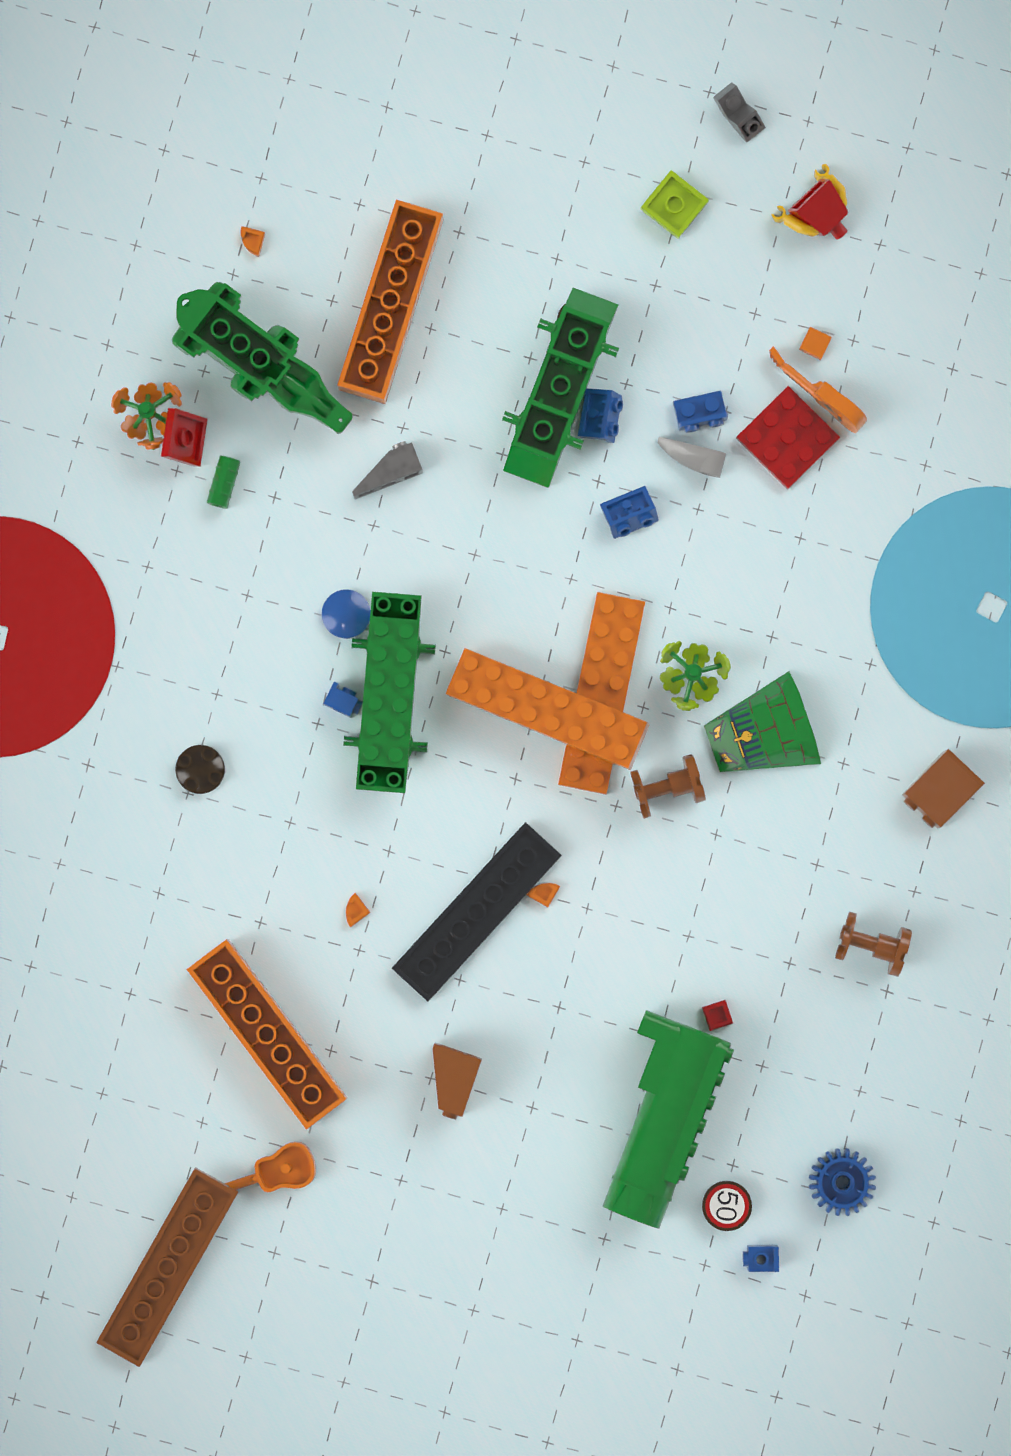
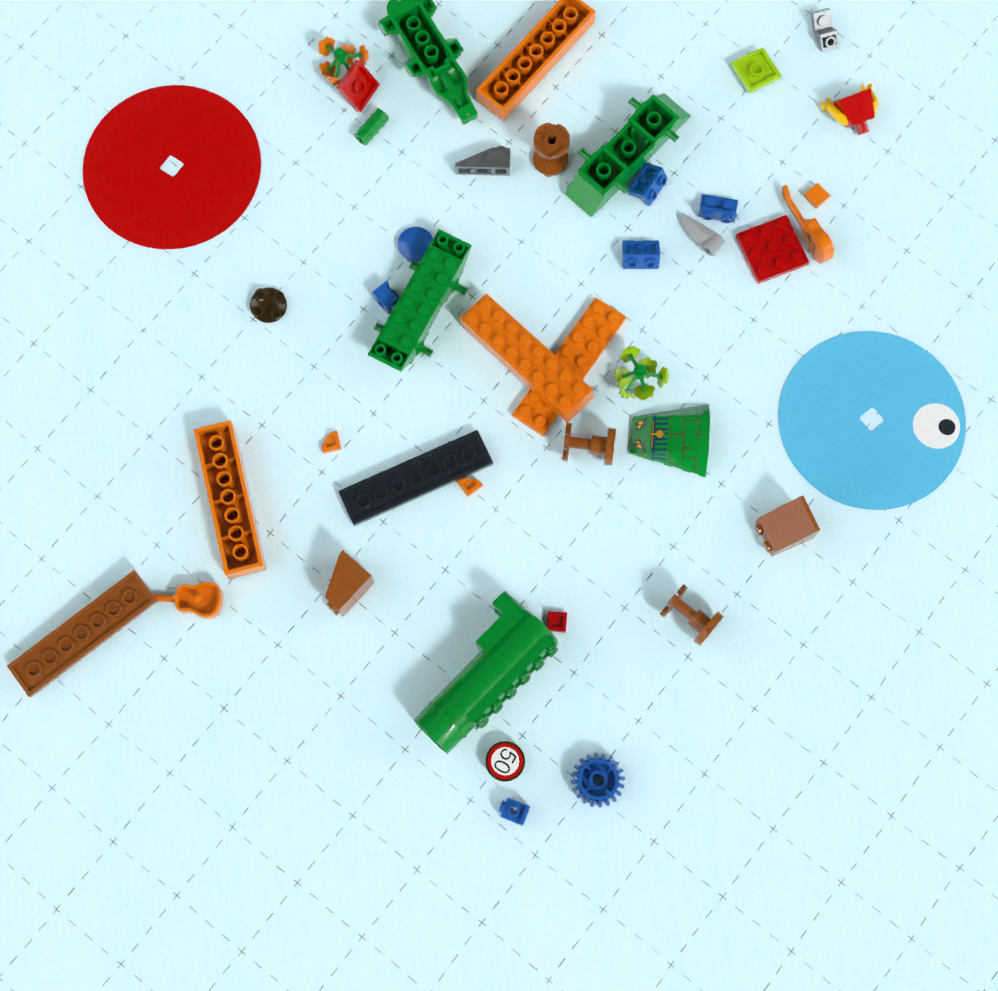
camera: 20 degrees right, 10 degrees down
(464, 425) = (551, 149): none -> dark orange piece

